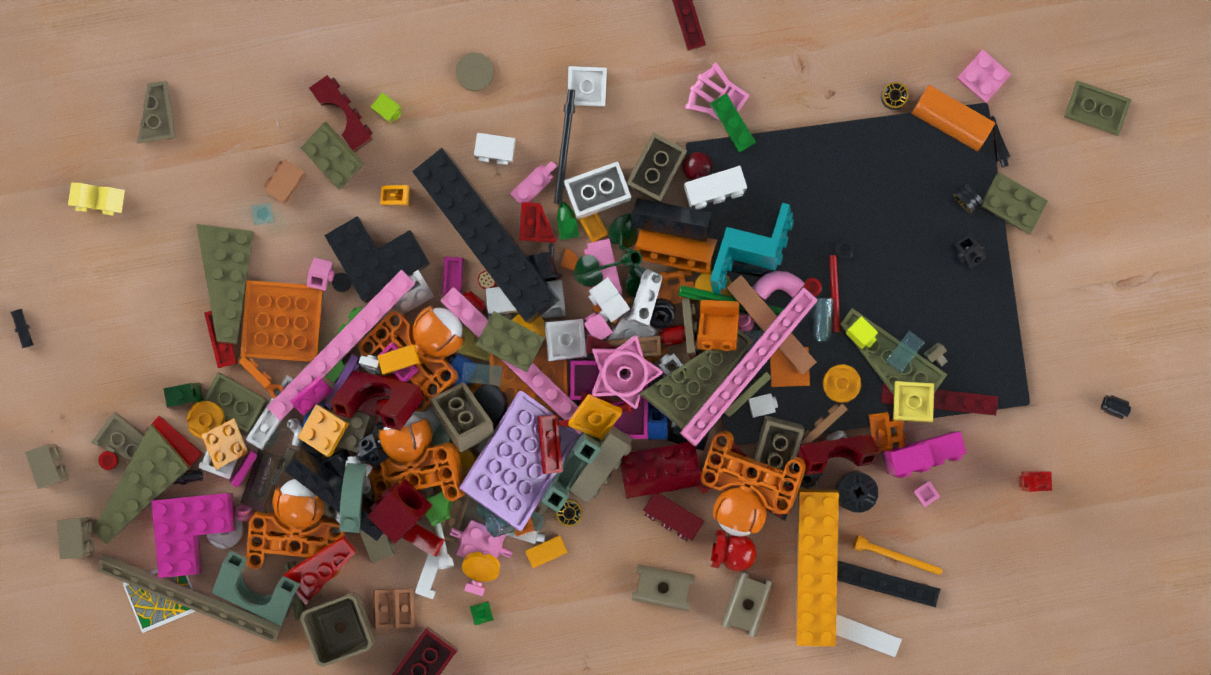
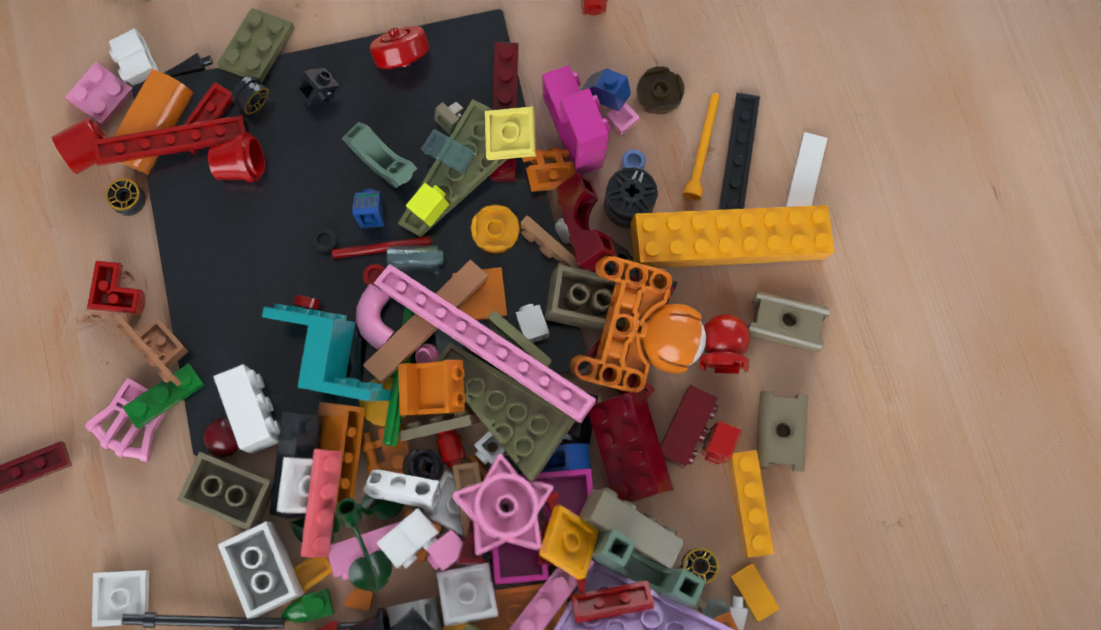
camera: 100 degrees left, 10 degrees down
(610, 555) = (750, 504): none -> light orange brick
(640, 238) = (321, 503): none -> coral plate
(654, 228) = (294, 485): none -> white plate
(657, 538) = (720, 443): none -> red brick
(772, 121) = (159, 344): none -> nougat bracket
(794, 235) = (306, 302): none -> red tile
(814, 81) = (108, 296): none -> red brick
(866, 286) = (369, 209): none -> blue slope
(889, 498) = (633, 158): none -> medium blue tile
(907, 297) = (378, 156): none -> sand green arch
(914, 186) = (237, 159): none -> red piece
(934, 134) = (167, 140): none -> red tile
(938, 65) = (76, 146): none -> red piece
(940, 535) = (667, 80): none -> dark brown plate
(949, 482) = (610, 88): none -> blue slope
(954, 160) = (212, 106): none -> red tile
(998, 319) = (399, 47): none -> red wheel
(1011, 105) = (132, 56): none -> white brick

